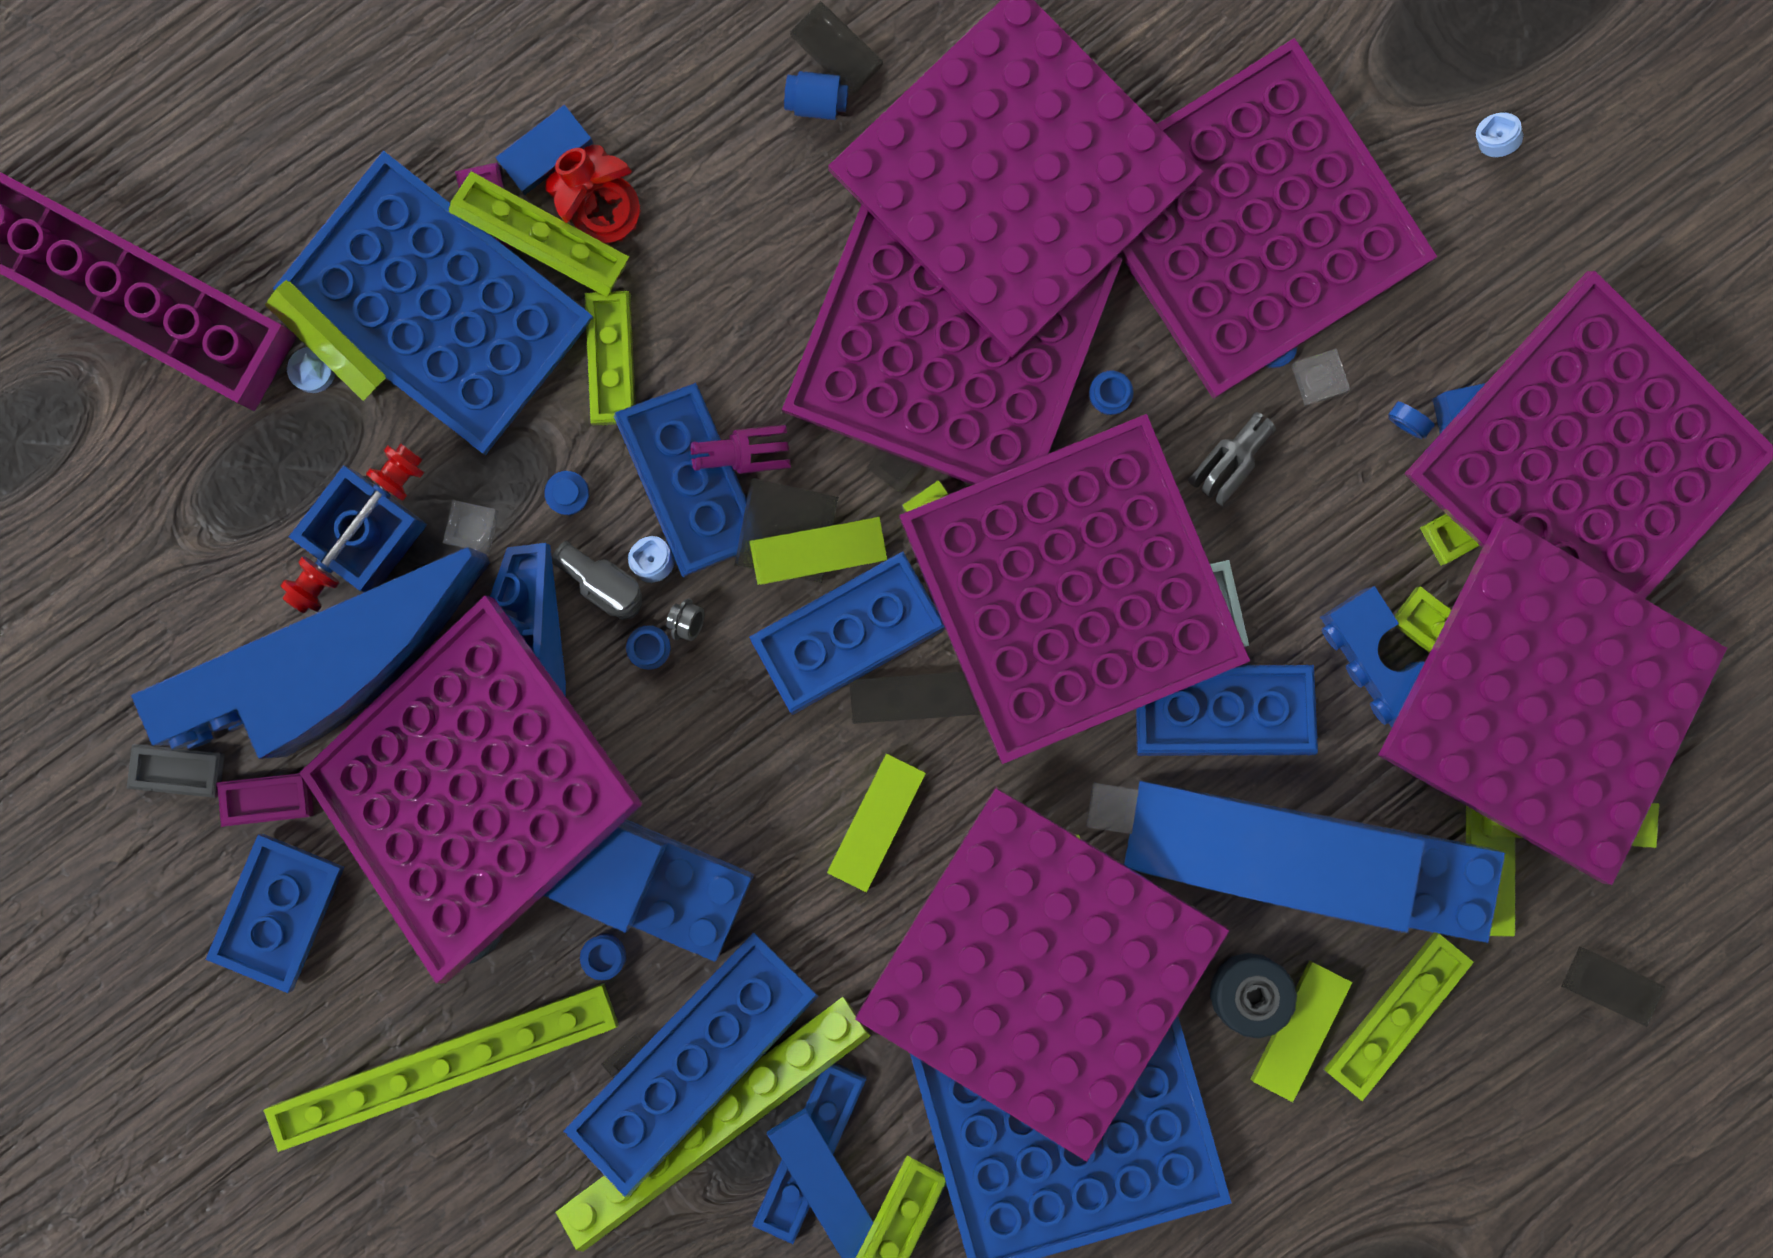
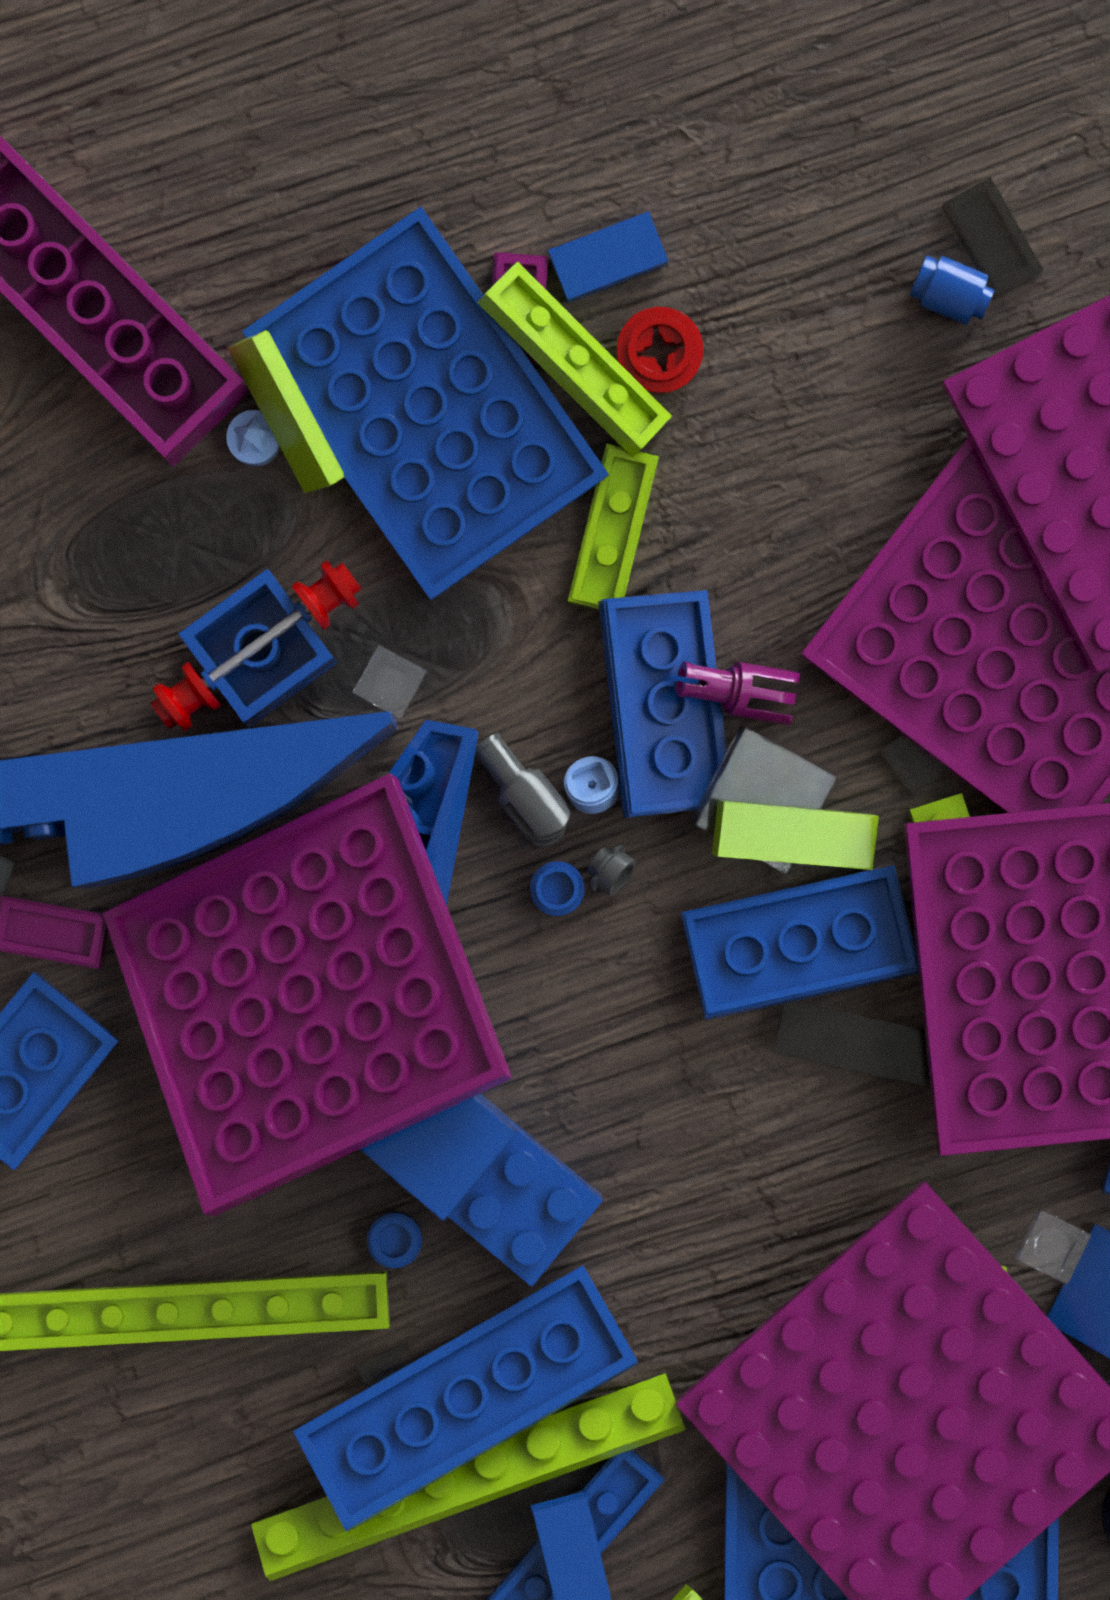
camera: 25 degrees right, 0 degrees up
(566, 493) = (514, 675): blue plate -> none
(579, 171) = (641, 299): red animal -> none
(876, 823) = (766, 1178): lime tile -> none

